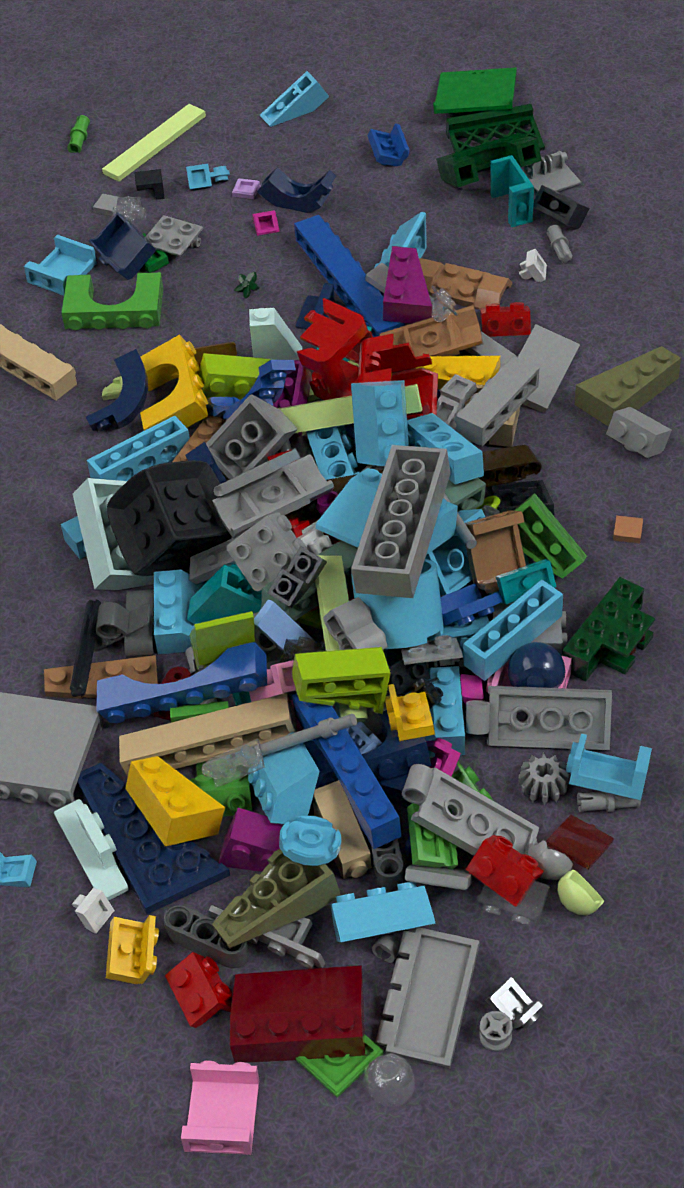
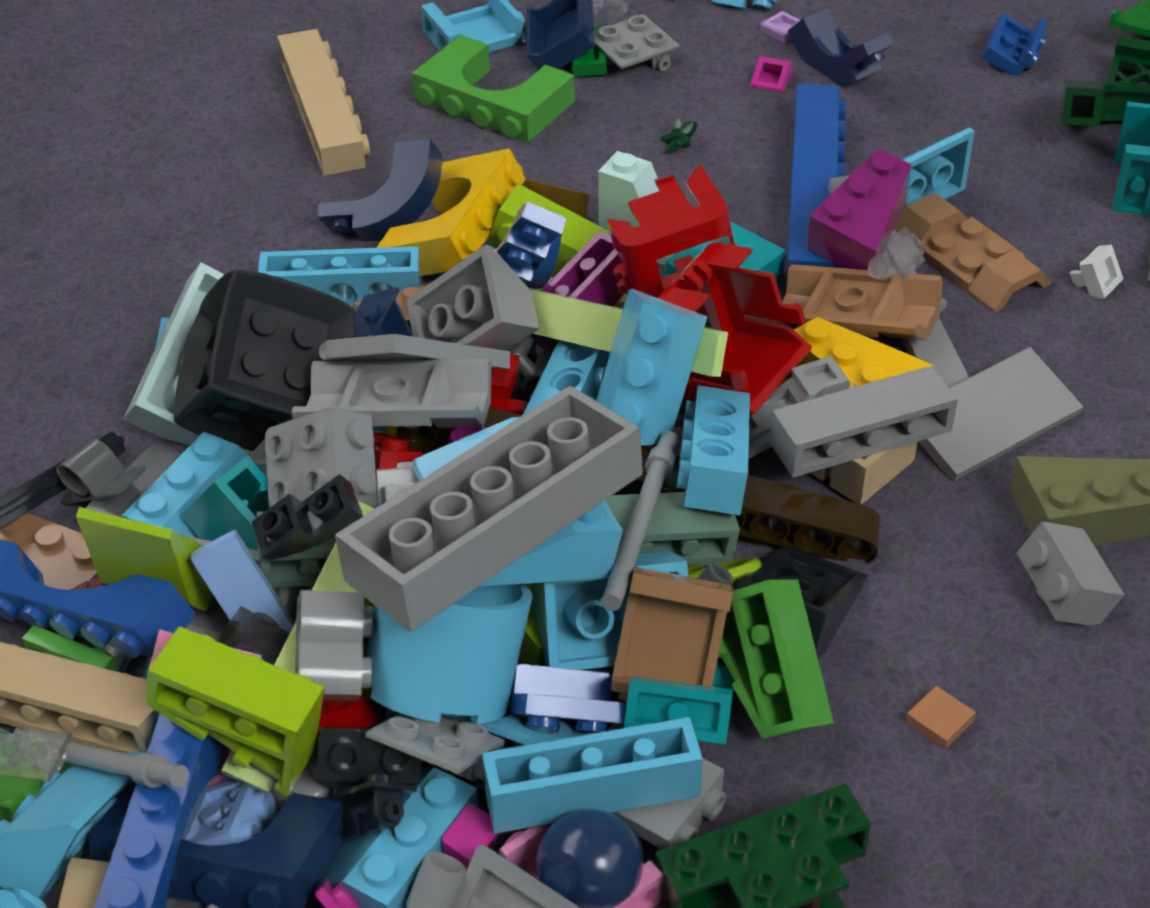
camera: 30 degrees right, 5 degrees down
(315, 303) = (754, 198): dark blue panel -> none
(409, 714) = (310, 819): yellow bracket -> none
(506, 320) = (993, 326): red bracket -> none

